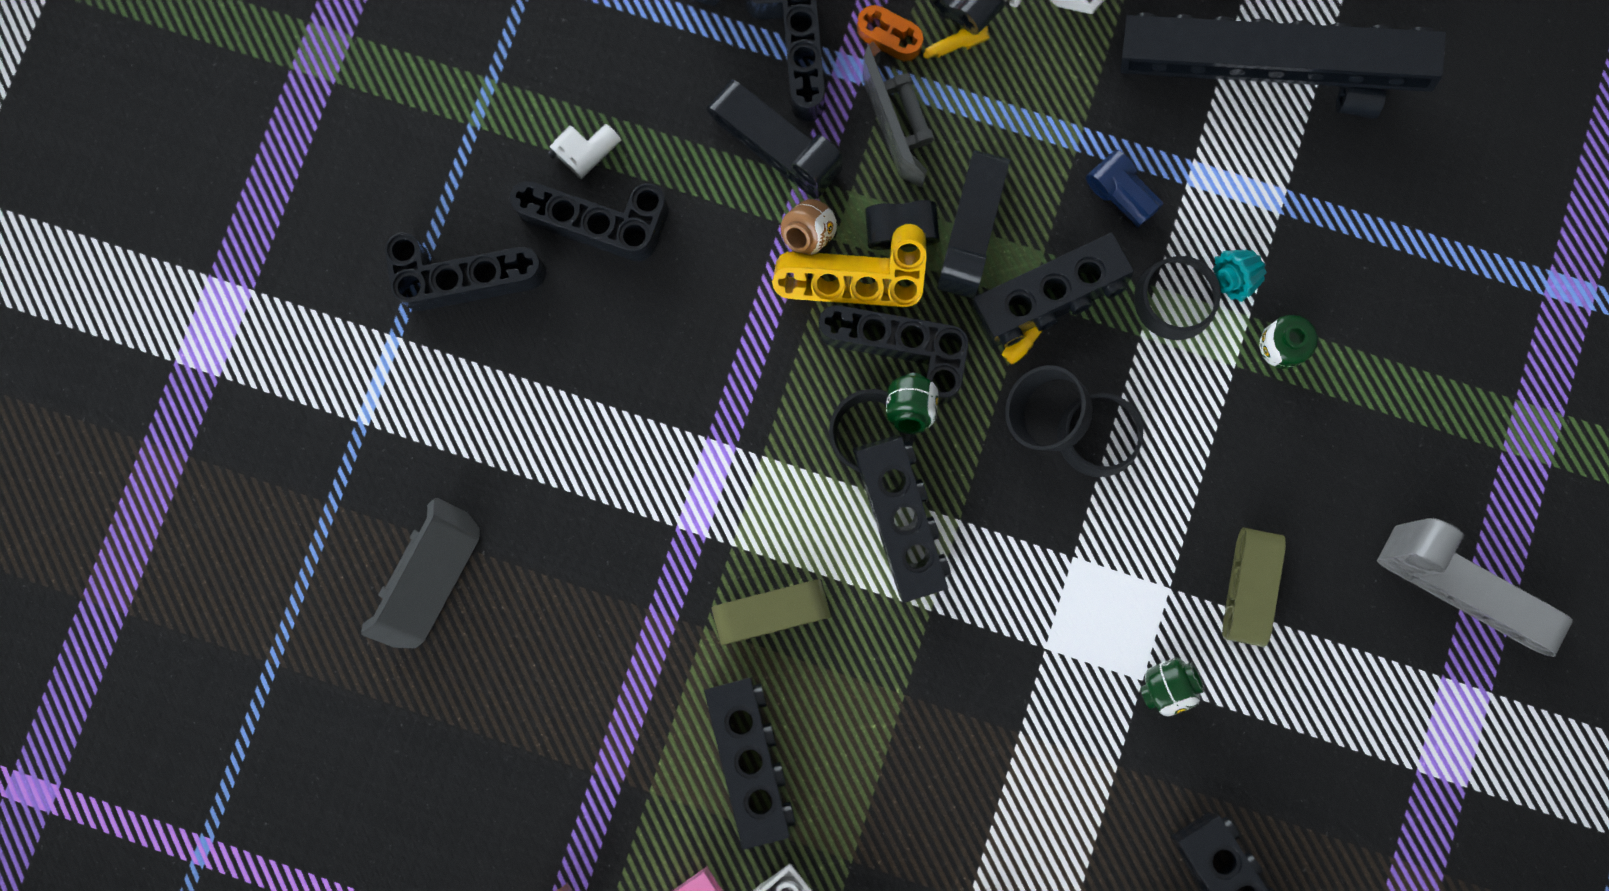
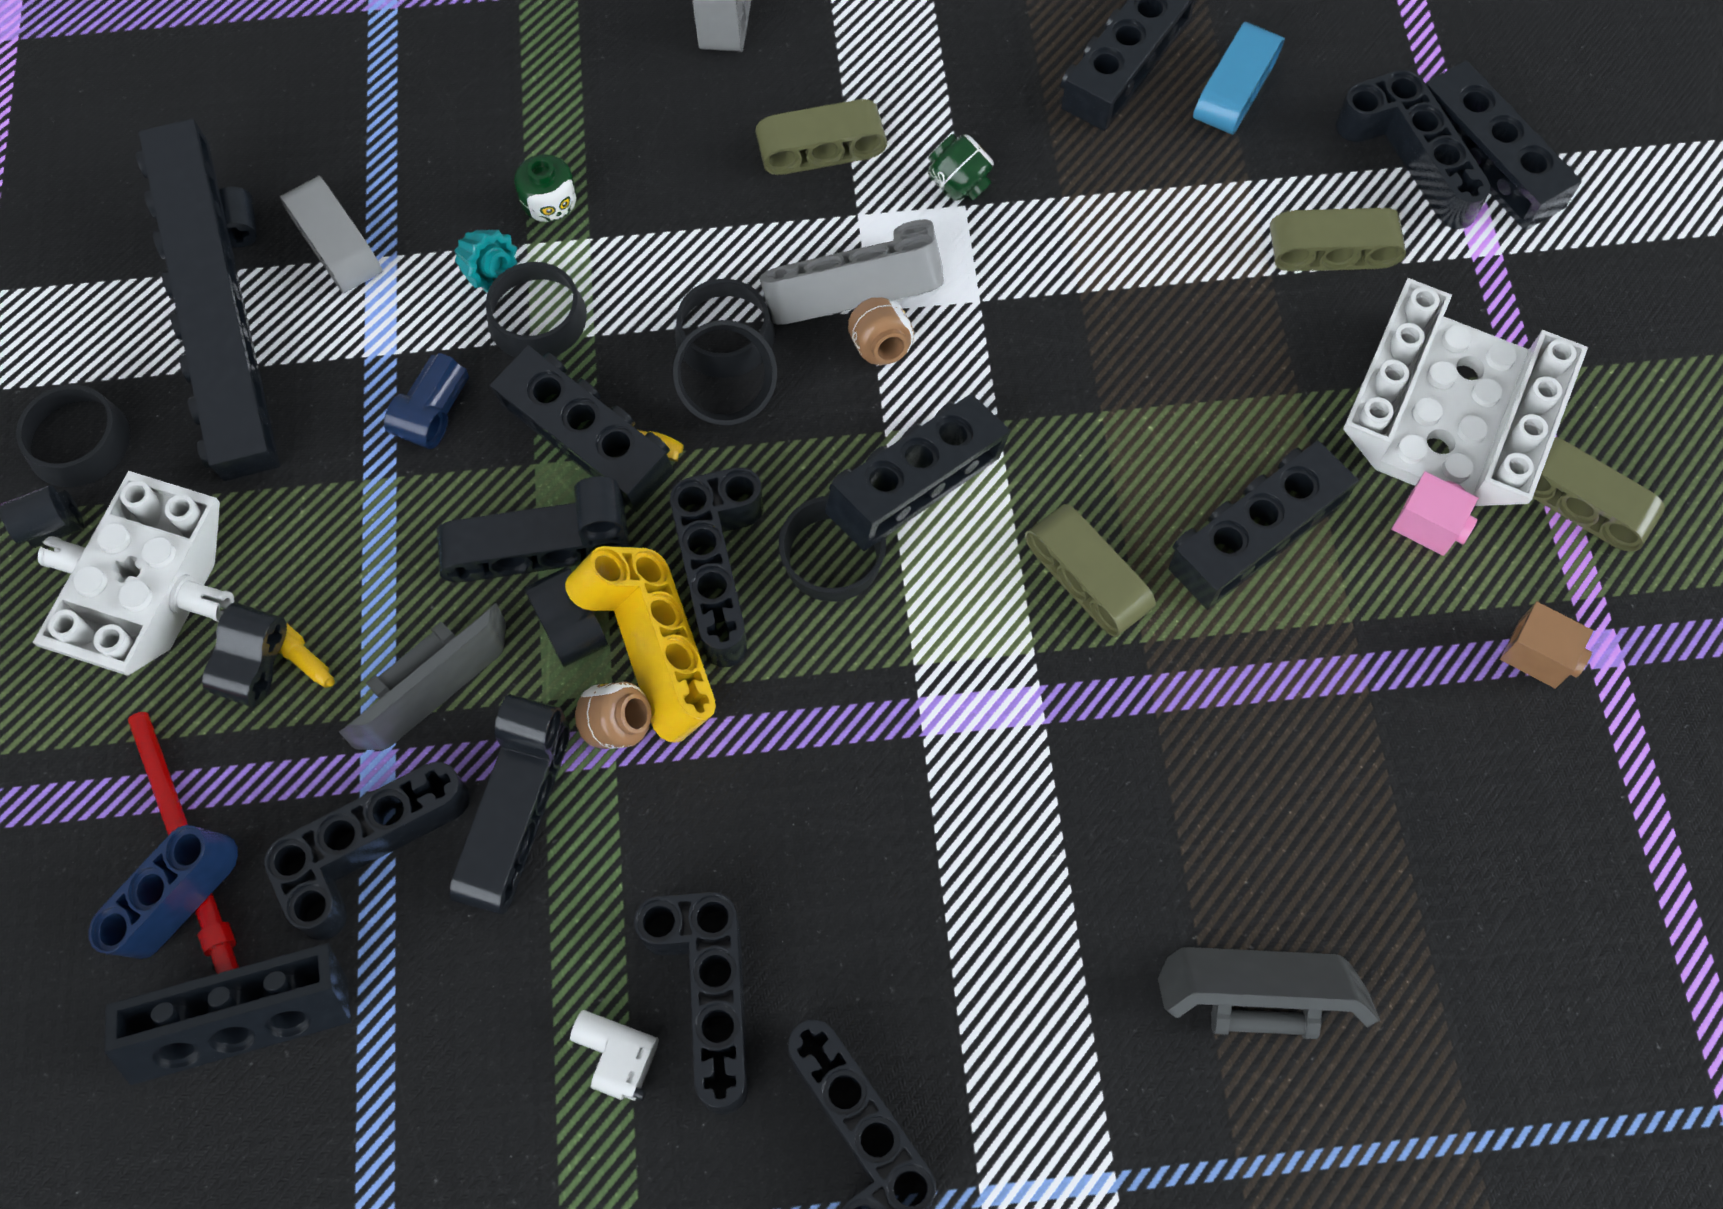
camera: 120 degrees left, 15 degrees down
(891, 29) = (303, 734): orange beam -> none
(912, 403) = (783, 502): dark green head -> none
(1041, 550) = (880, 331): none -> medium nougat head
(1091, 555) = (845, 279): none -> light grey beam
(1313, 165) = (331, 234): none -> light grey beam

